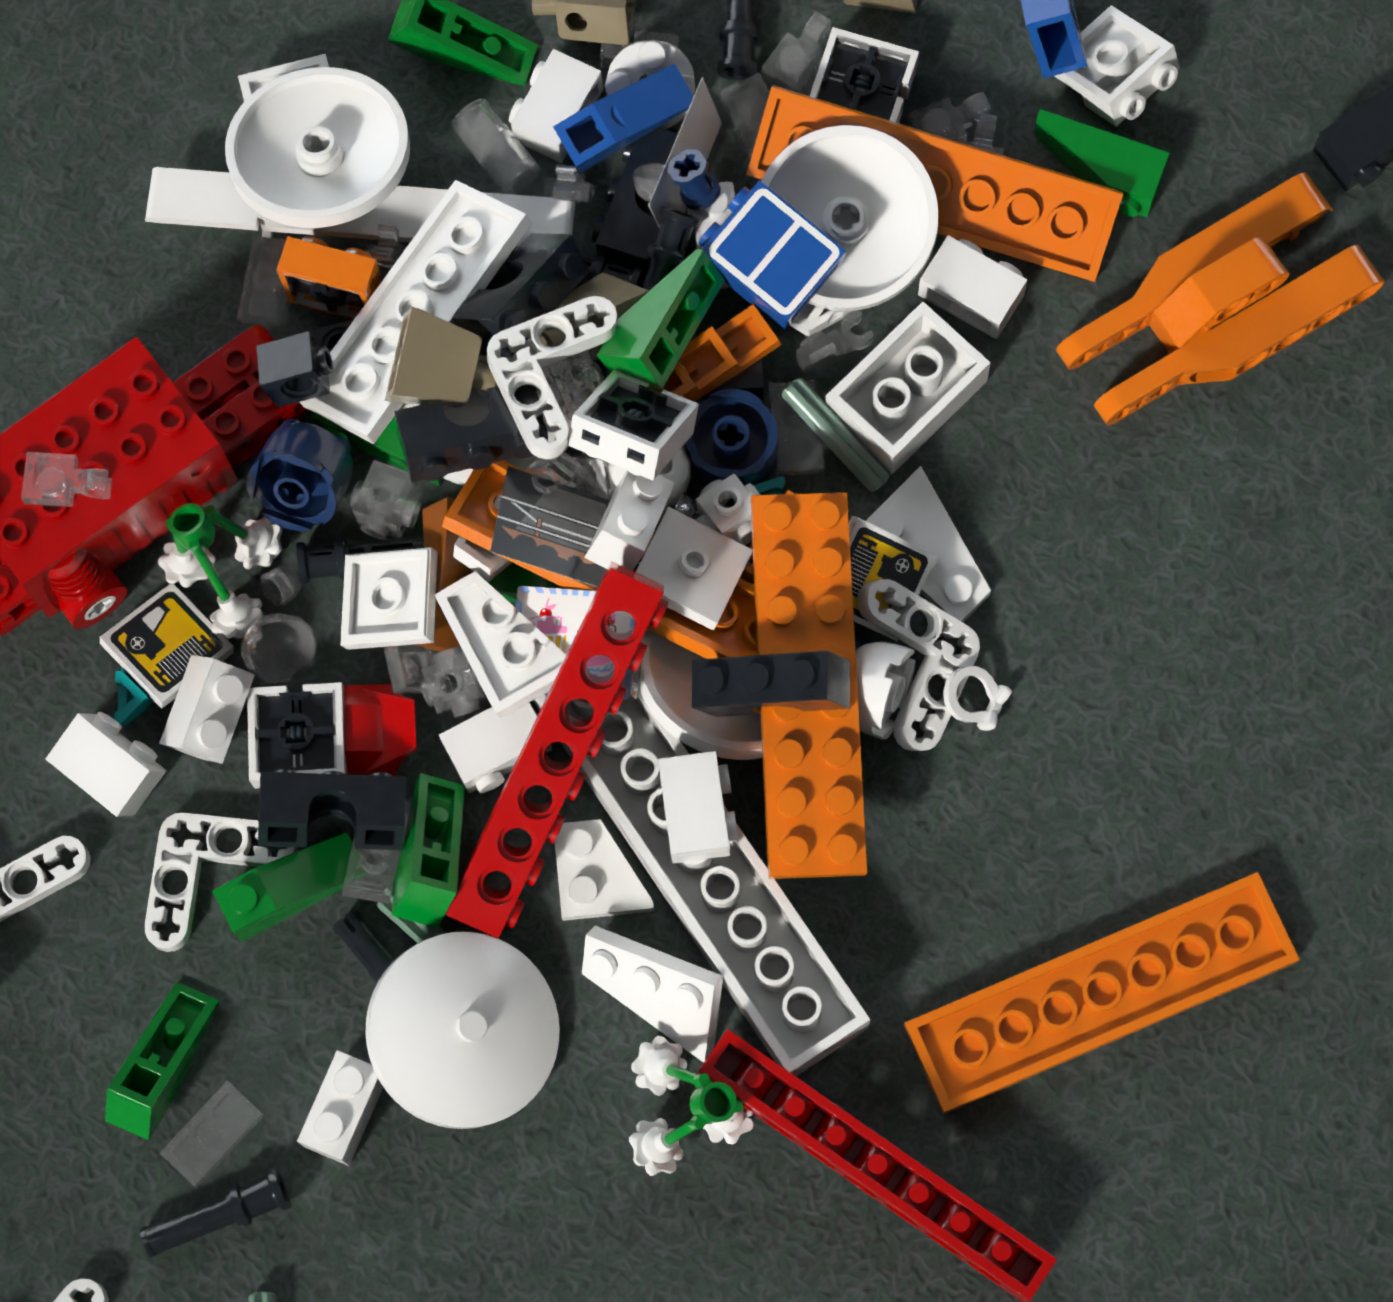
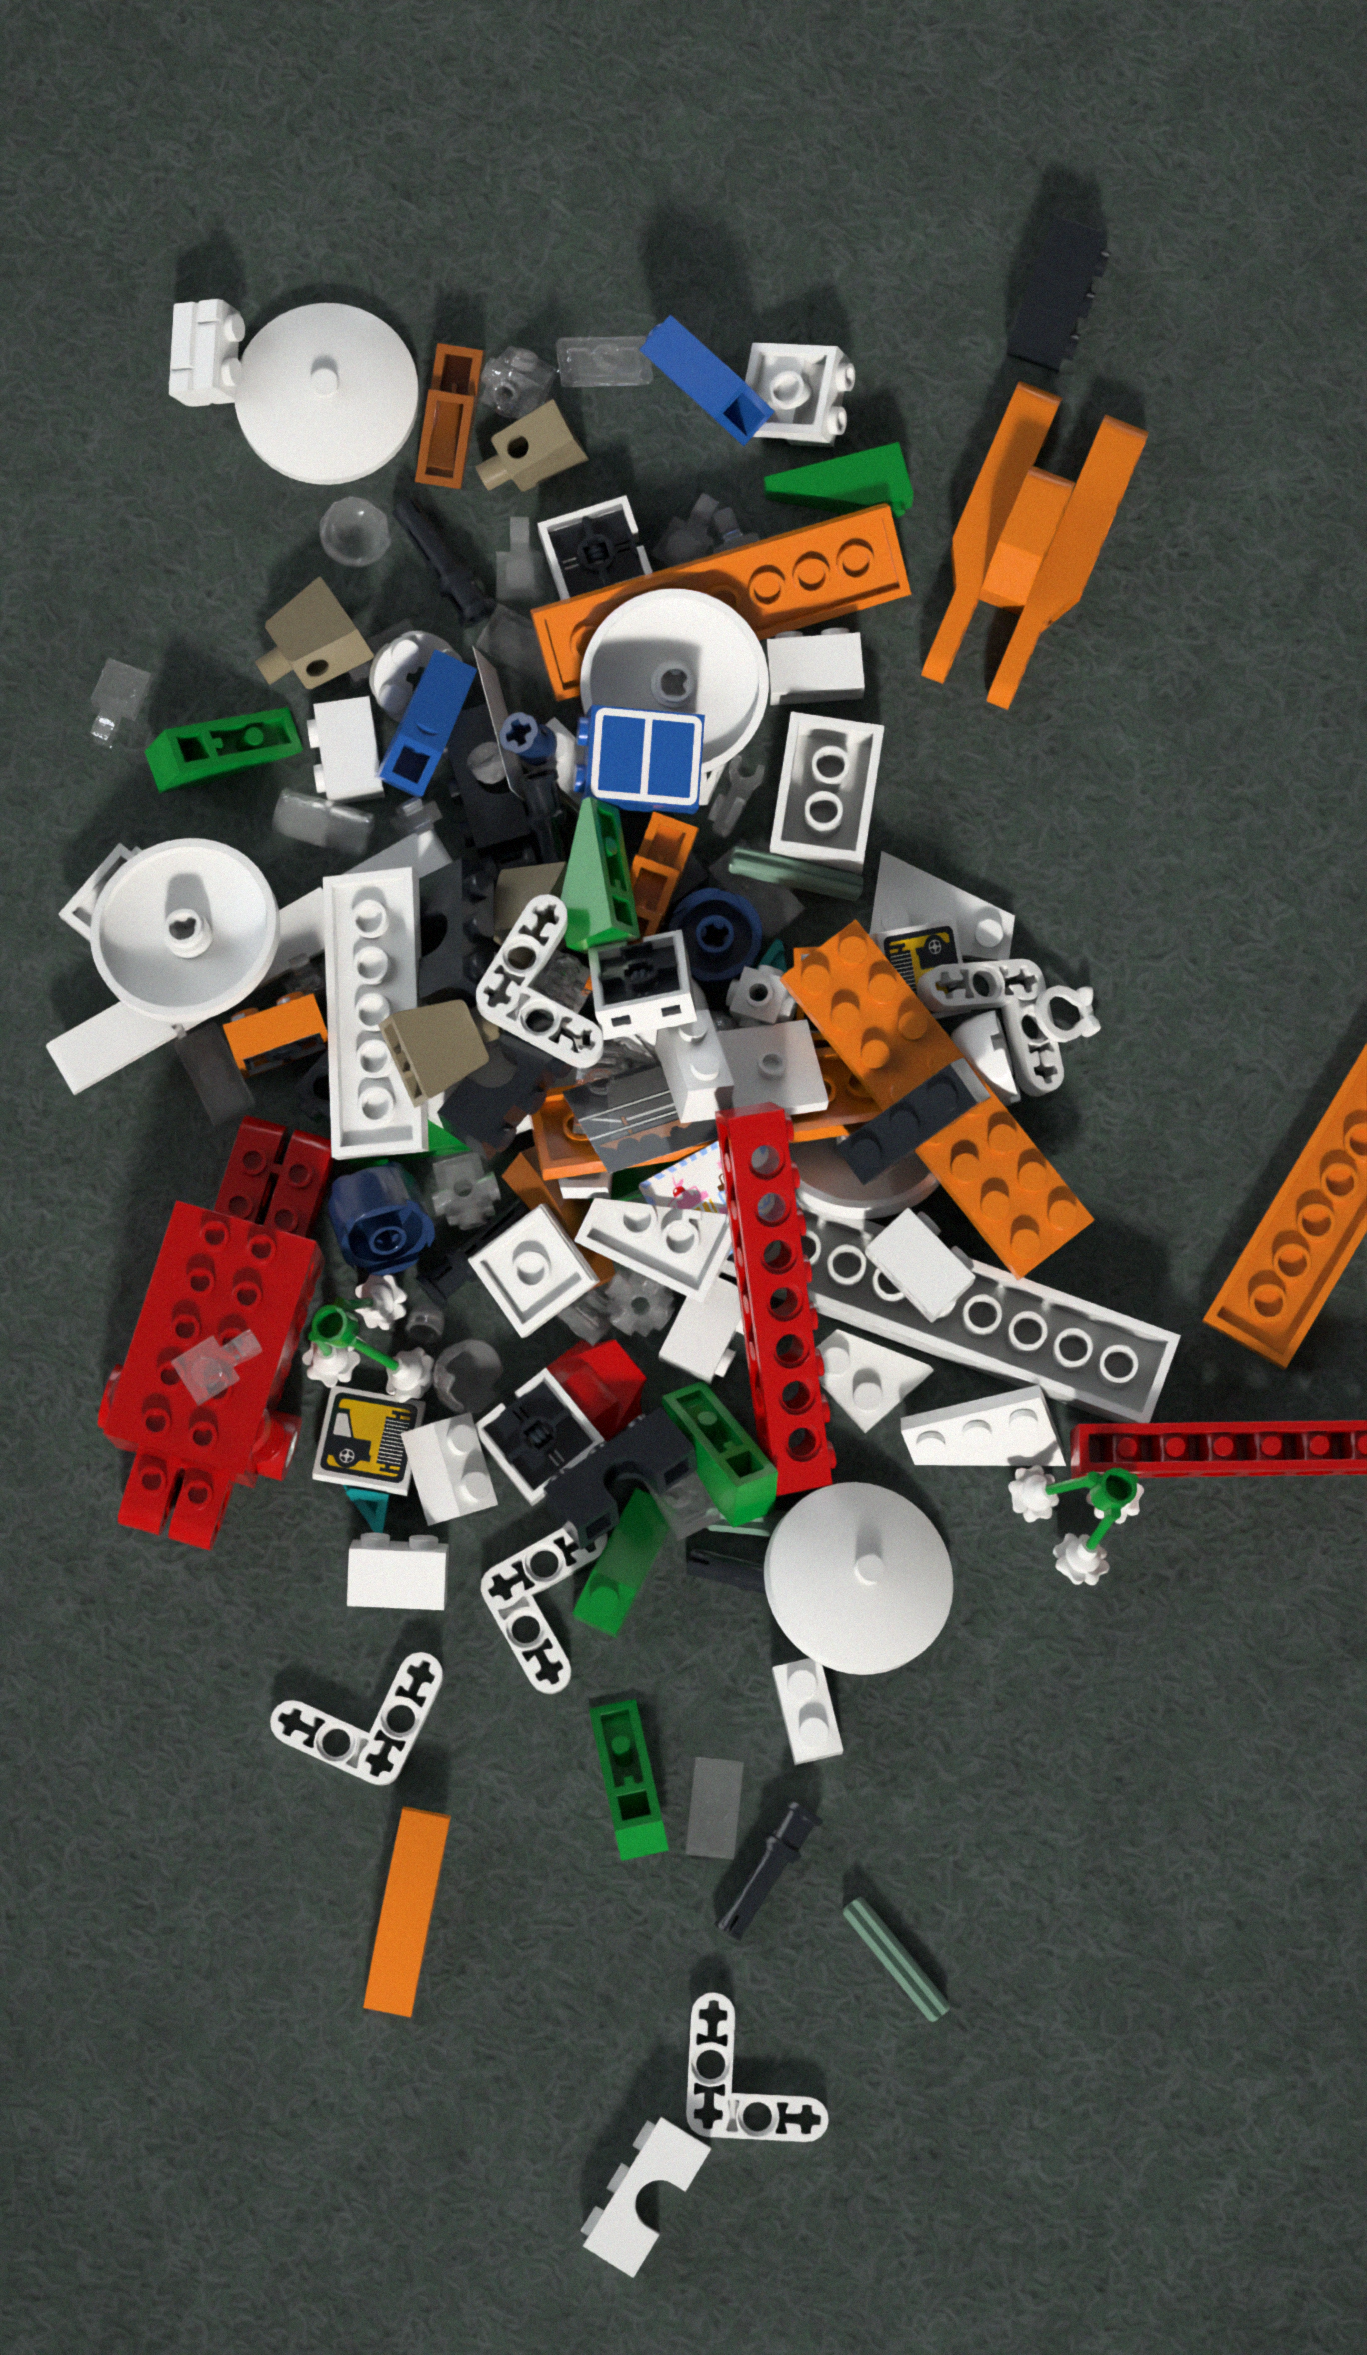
camera: 40 degrees left, 5 degrees up
(294, 369) = (316, 1133): black brick -> none

